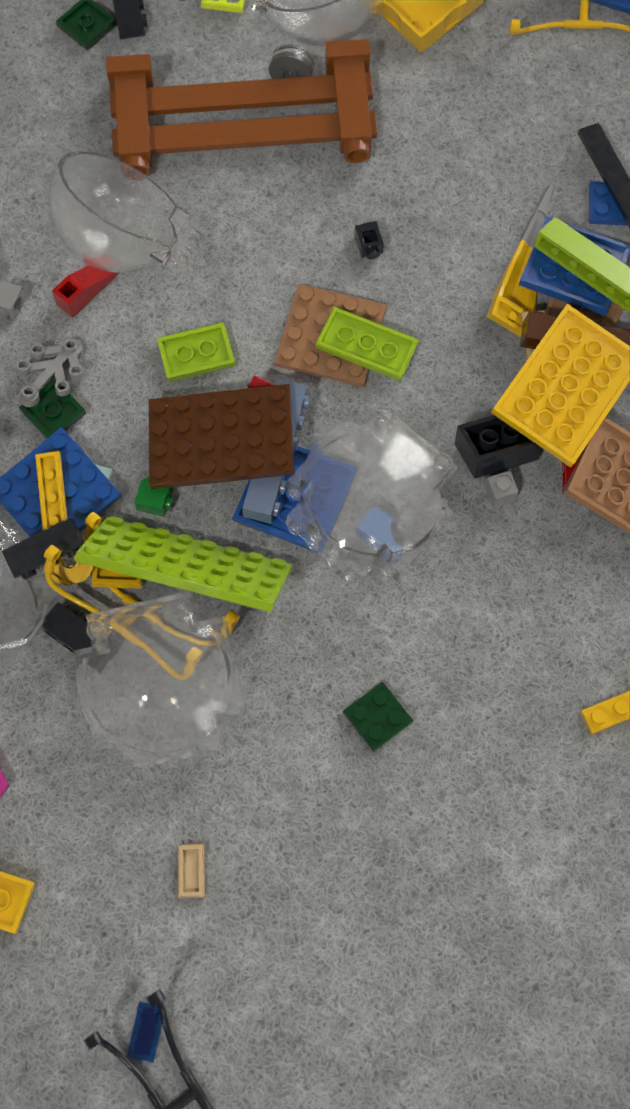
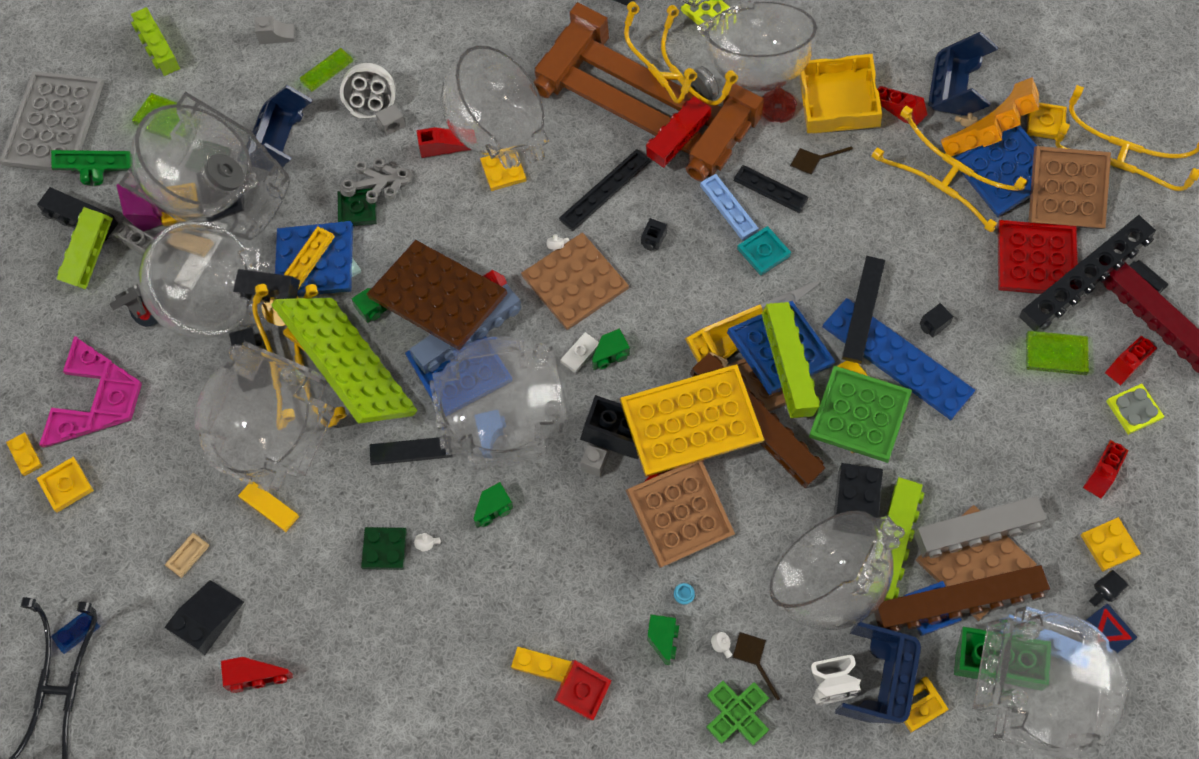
camera: 40 degrees right, 5 degrees down
(166, 280) = (498, 176): none -> yellow plate
(196, 352) = (477, 231): lime plate -> none
(230, 762) = (268, 506): none -> yellow tile
(253, 79) = (674, 74): none -> yellow bar
(265, 914) = (204, 616): none -> black slope
(281, 229) = (604, 190): none -> black tile
(282, 310) = (556, 242): none -> white piece
(312, 124) = (678, 131): none -> red brick
(316, 609) = (406, 451): none -> black tile
(356, 932) = (246, 672): none -> red slope
(367, 344) = (589, 301): lime tile -> none
(378, 33) = (787, 102): none -> clear red plate
(397, 397) = (580, 352): none -> white plate
(412, 680) = (425, 542): none -> white piece
(413, 167) = (729, 207): none -> light blue plate
(423, 374) = (611, 348): none -> green slope
(434, 125) = (771, 189): none -> black tile
(443, 598) = (492, 504): none -> green slope
(445, 78) = (807, 161): none -> dark brown piece
(480, 187) = (764, 250): none -> teal plate

